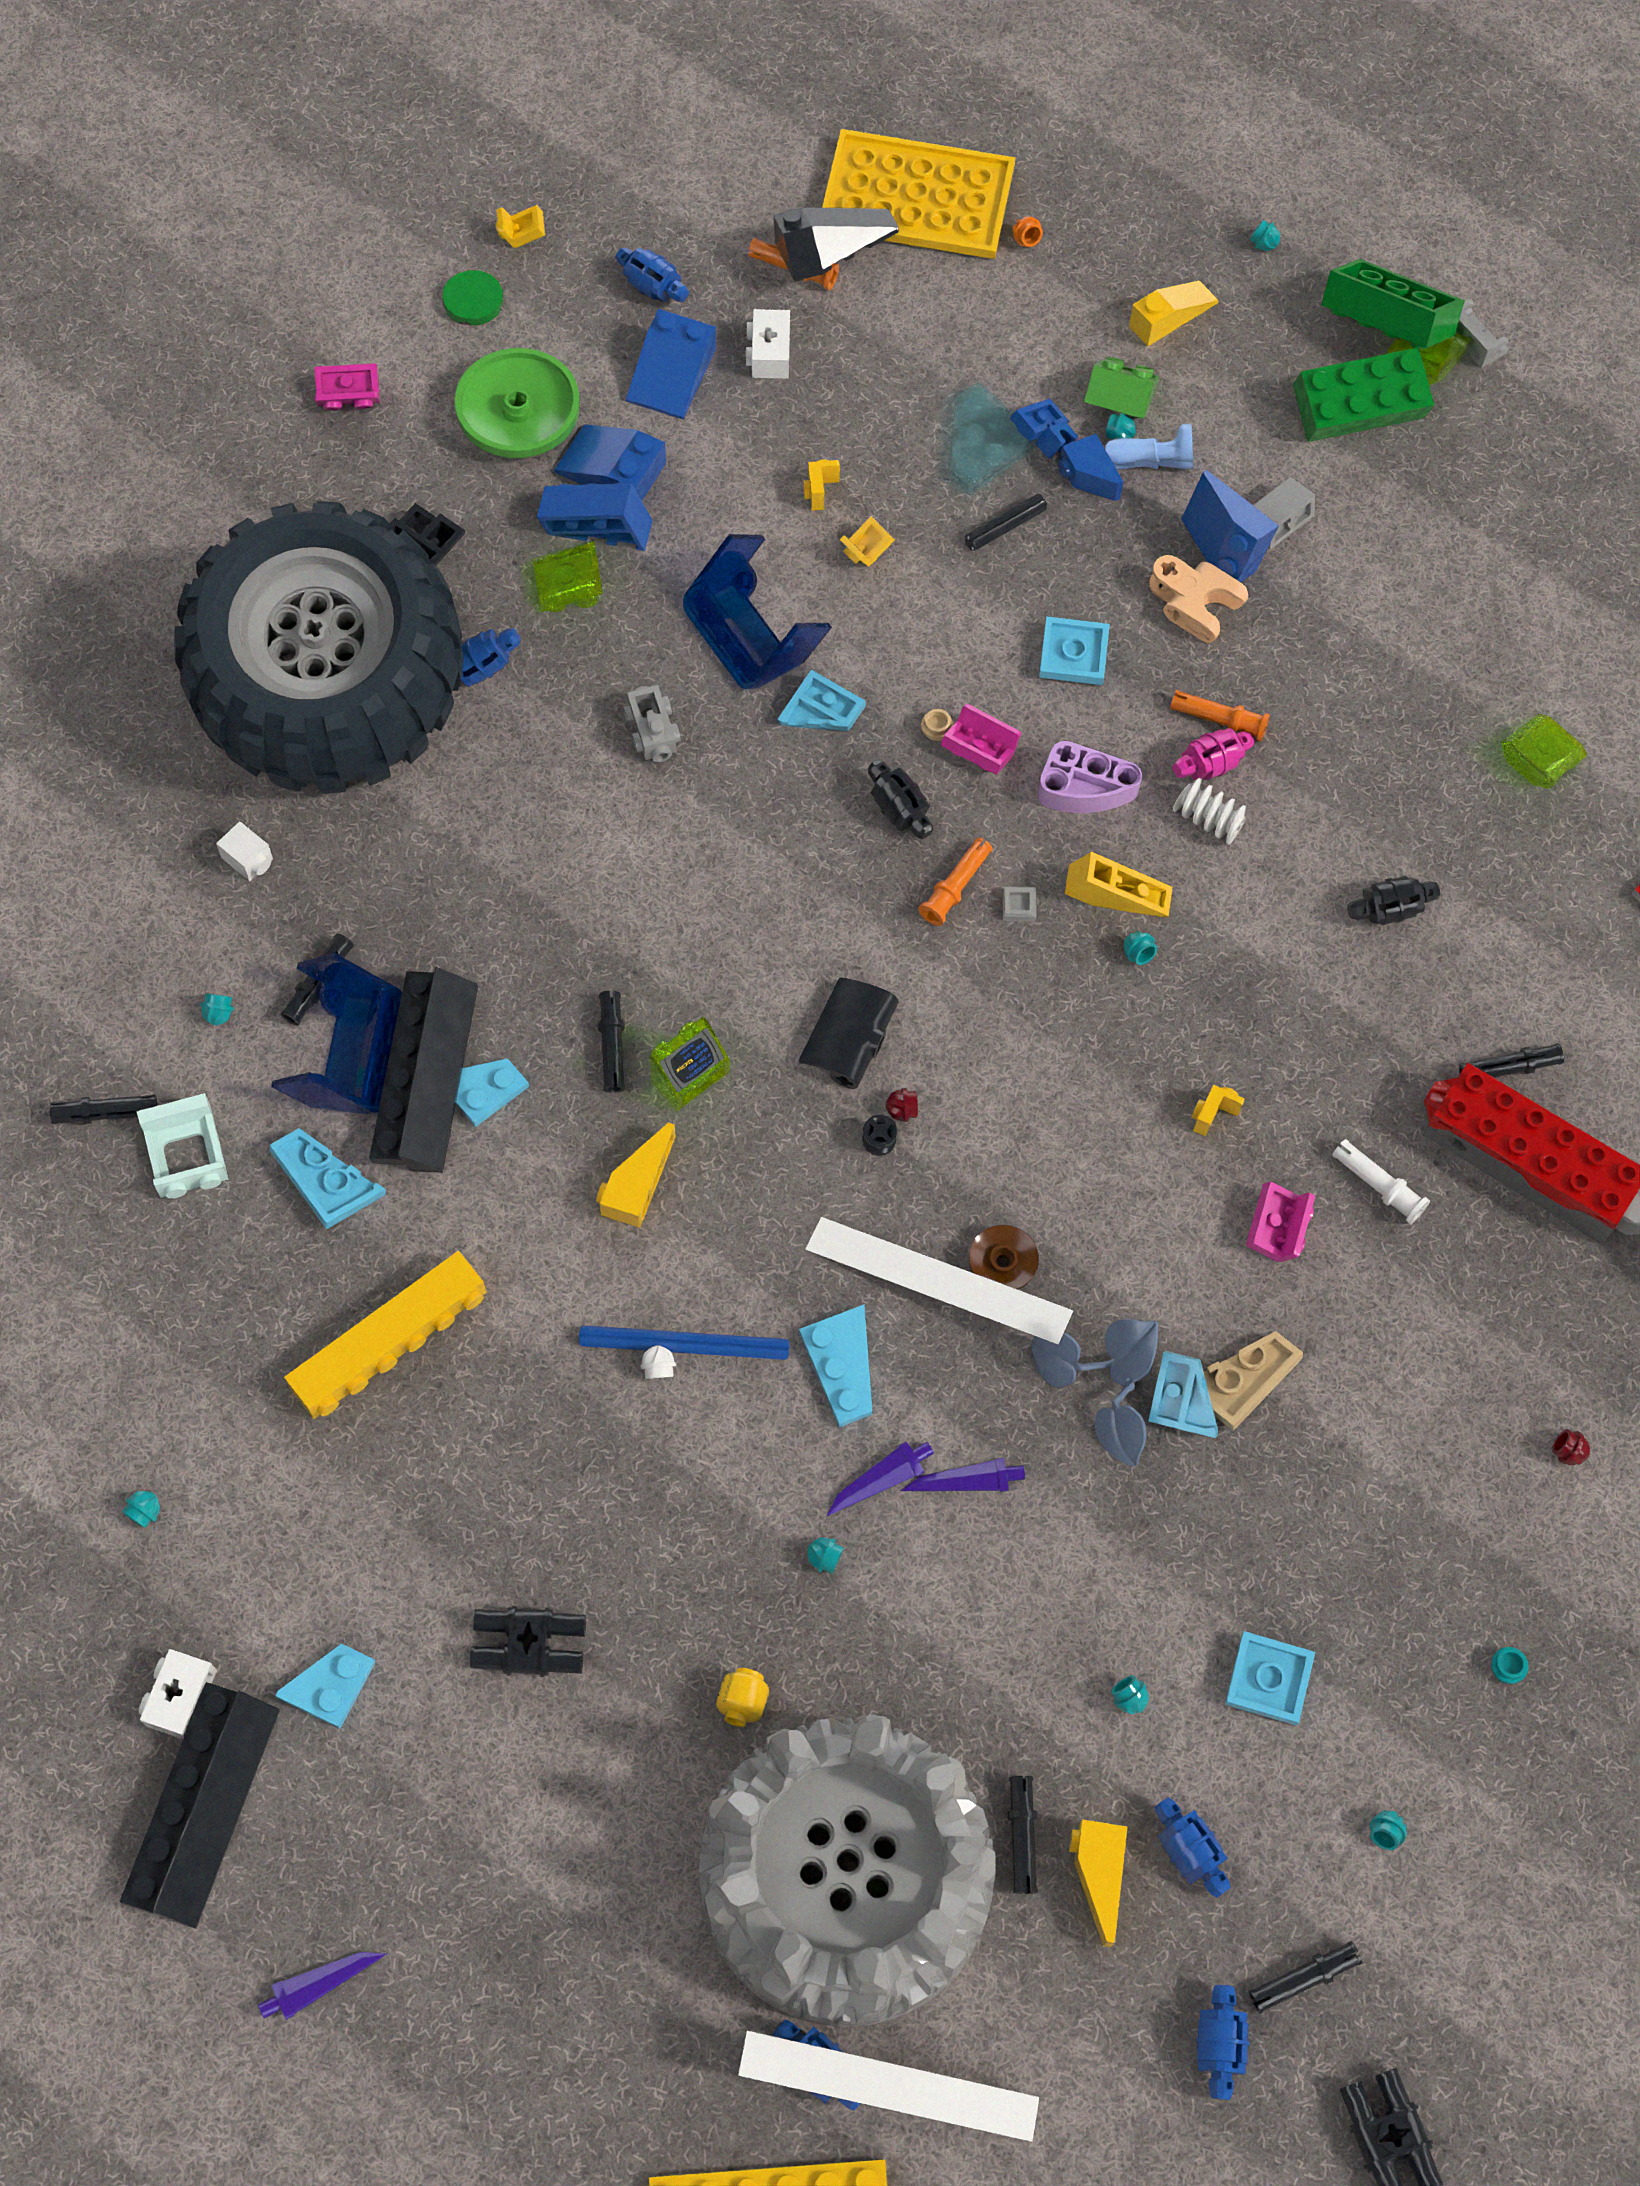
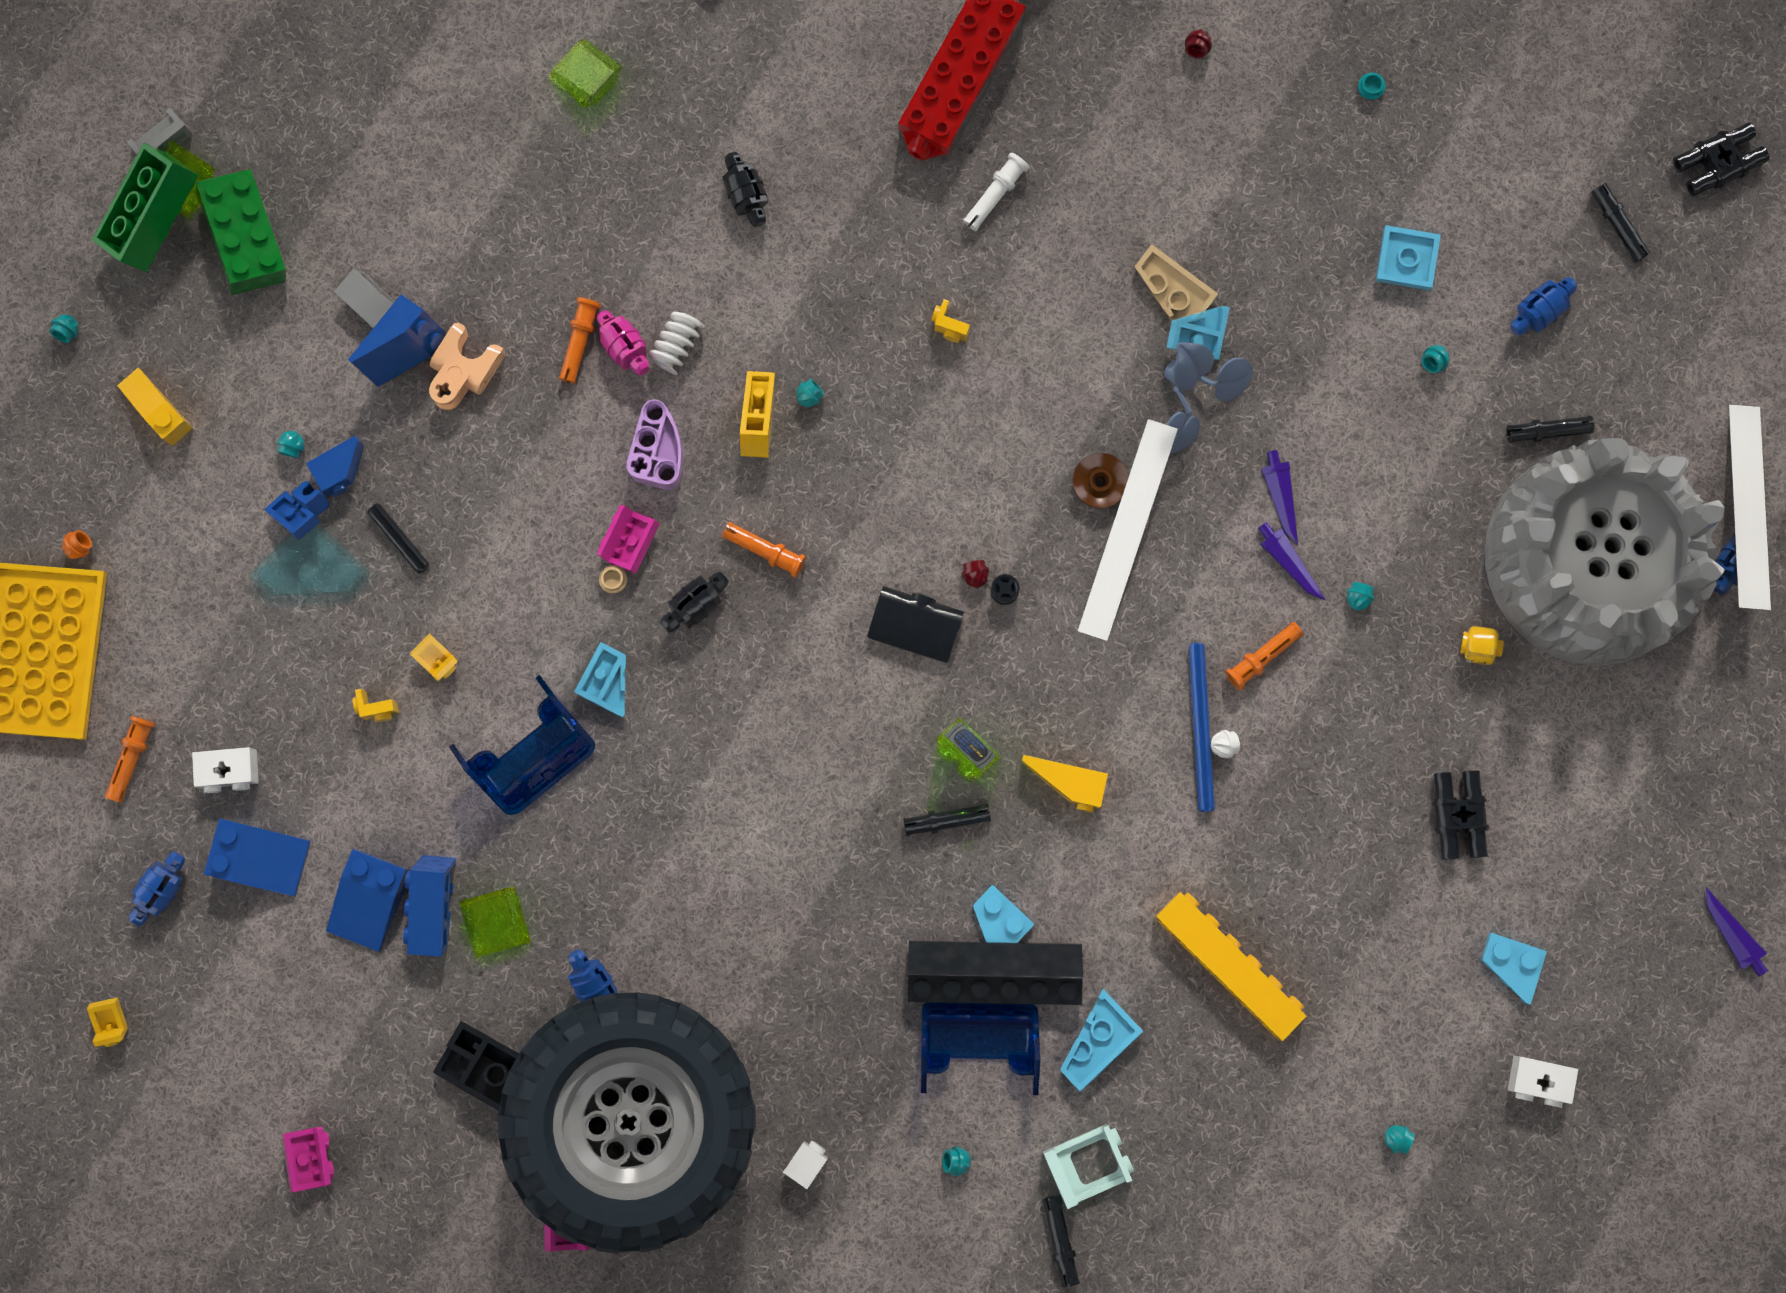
camera: 90 degrees left, 15 degrees up
(200, 1805) = (1622, 1047): black slope -> none
(295, 1009) = (912, 1077): black pin -> none
(472, 297) = (191, 1057): green tile -> none
(517, 403) = (315, 993): bright green dish -> none
(654, 733) = (648, 822): light grey brick -> none
(754, 1412) = (1254, 663): none -> orange pin
(818, 237) = (106, 725): wedge -> none
(841, 1363) = (1201, 600): medium azure wing -> none
(1019, 903) = (777, 496): light grey tile -> none
(1074, 650) = (527, 468): medium azure plate -> none
(1099, 1863) = (1561, 371): yellow slope -> none
(1121, 387) = (247, 445): bright green slope -> none
(1134, 453) = (318, 426): light blue piece -> none
(1222, 2042) = (1677, 276): blue piece -> none
(1280, 1222) = (1042, 266): dark pink bracket -> none
(1388, 1830) = (1507, 168): teal plate -> none
(1525, 1060) = (876, 83): black pin -> none

